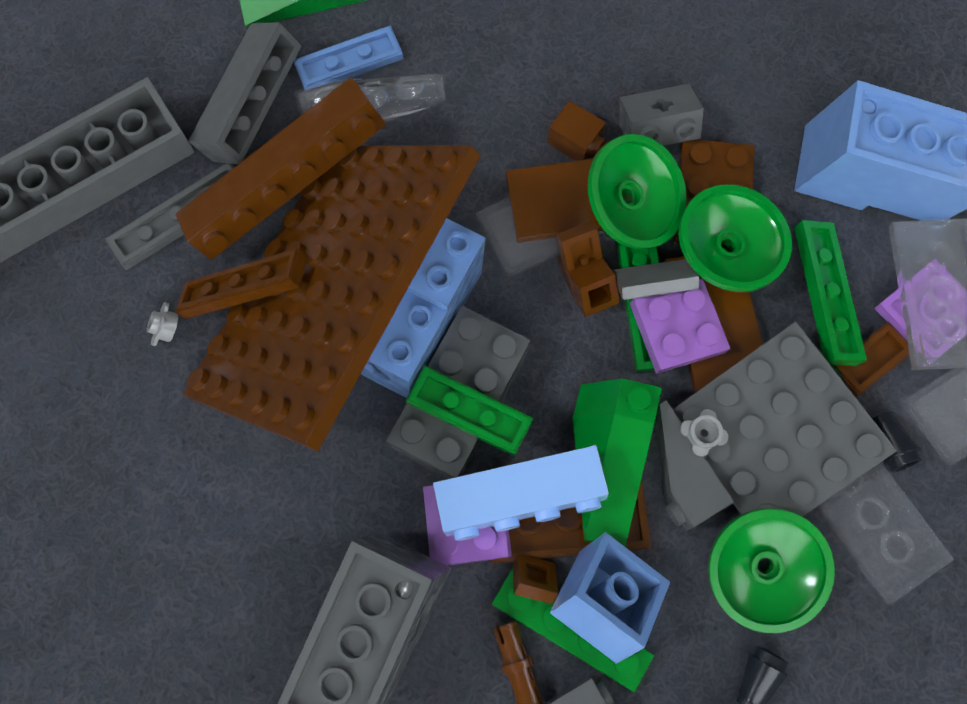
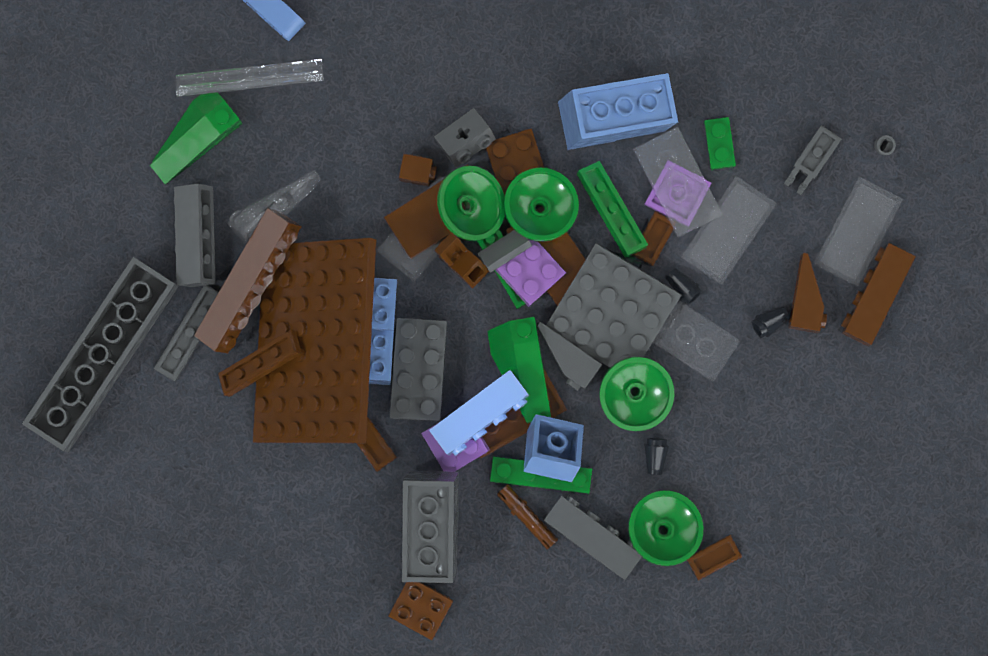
camera: 20 degrees left, 10 degrees up
(162, 324) = (219, 406): light grey plate -> none
(346, 472) = (376, 448): none -> reddish brown tile
(350, 57) = (245, 179): medium blue tile -> none
(469, 410) = (430, 380): green tile -> none
(535, 578) = (508, 456): reddish brown tile -> none
(707, 421) = (562, 332): light grey plate -> none

